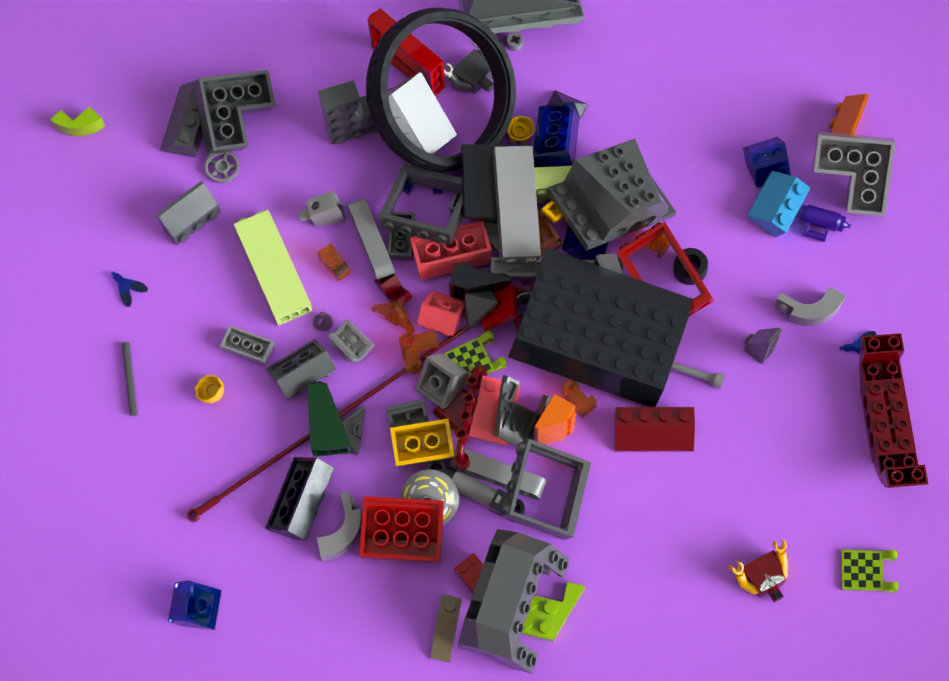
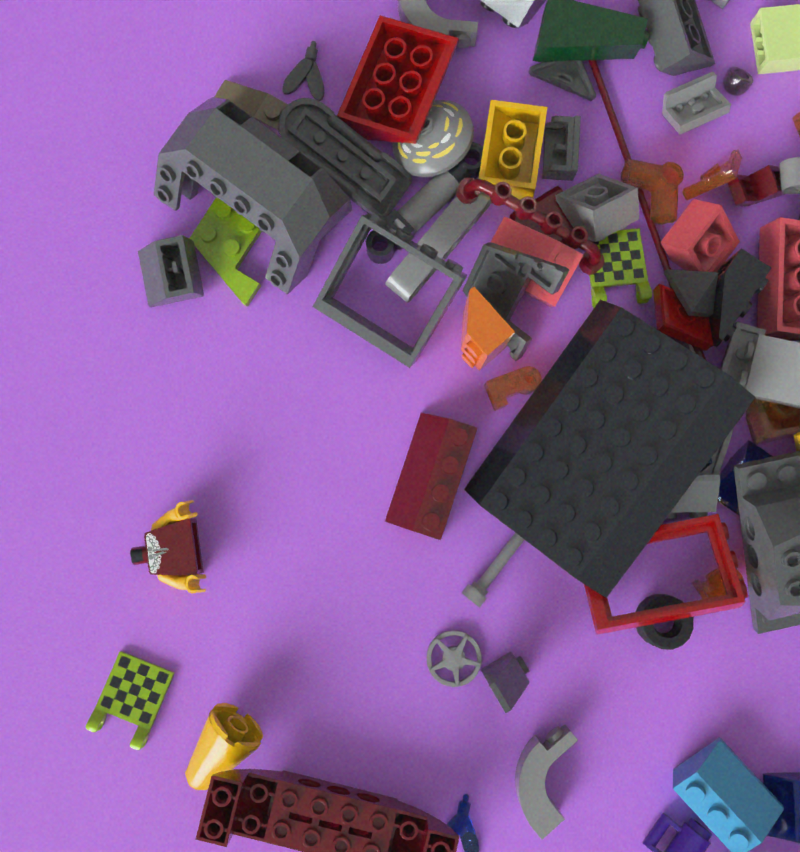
camera: 105 degrees right, 15 degrees up
(404, 602) = (305, 69): none -> dark grey piece
(464, 551) = (357, 166): none -> dark grey piece
(582, 642) = (170, 271): none -> dark grey slope
(762, 381) = (454, 658): none -> light grey wheel
(873, 499) = (222, 744): none -> yellow cone

